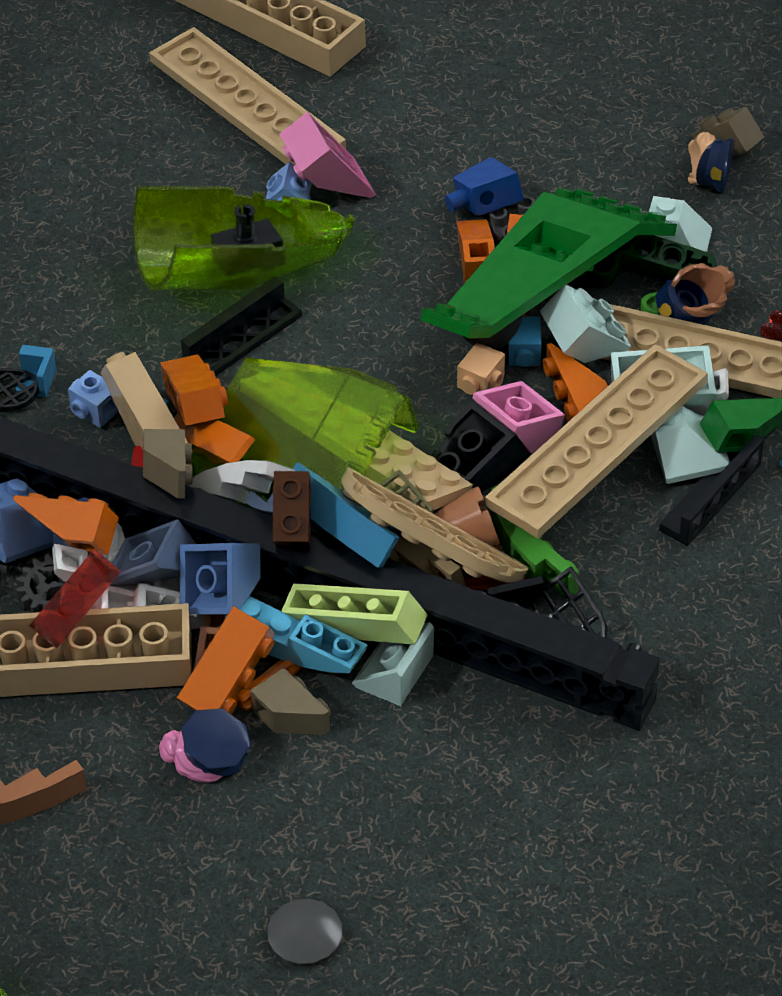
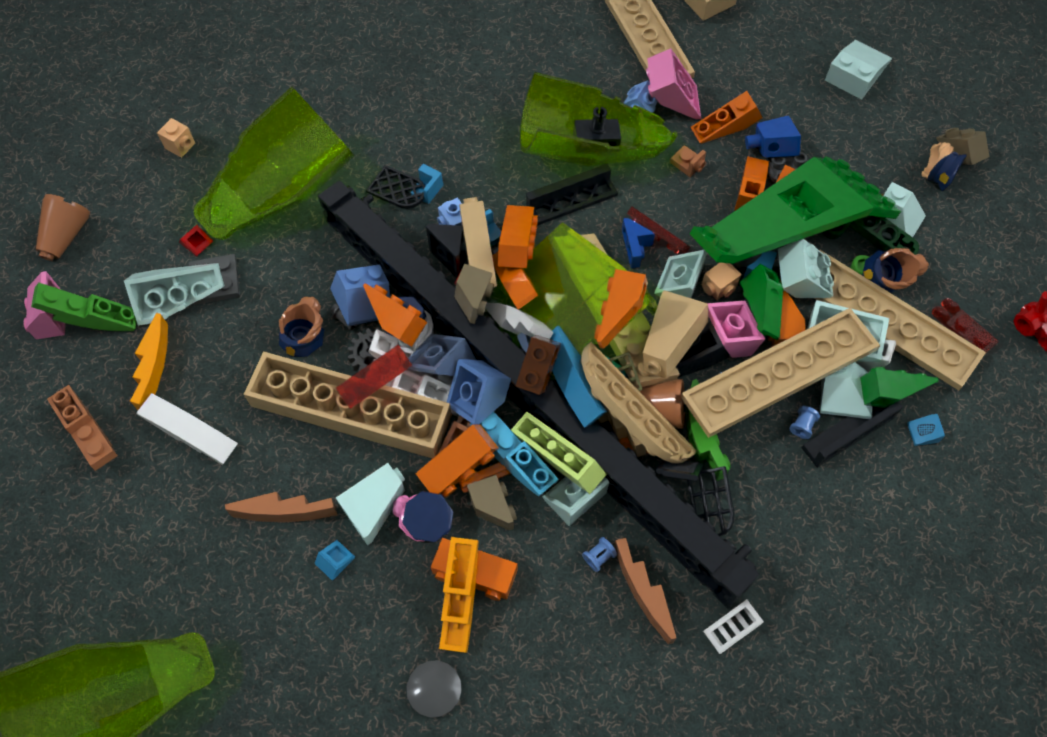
camera: 20 degrees right, 15 degrees up
(100, 427) = (447, 245): none -> black slope
(106, 838) = (333, 559): none -> dark azure slope
(128, 754) = (372, 500): none -> light aqua slope
(294, 810) = (459, 594): none -> light orange slope
(299, 784) = (493, 573): none -> orange brick
(349, 351) = (635, 239): none -> blue slope
(373, 405) = (624, 301): none -> orange slope
(375, 338) = (674, 243): none -> clear red plate
(381, 248) = (688, 161): none -> nougat bracket
(414, 183) = (728, 119): none -> orange slope
(428, 380) = (682, 273): none -> light aqua slope
(446, 433) = (673, 332): none -> tan slope
(453, 719) = (608, 552): none -> medium blue bush
(534, 744) = (649, 598): none -> nougat slope
(545, 368) = (765, 298): none -> green slope
(557, 81) = (857, 68): none -> light aqua slope
(651, 499) = (804, 422): none -> medium blue bush
(669, 721) = (727, 618): none -> white slope

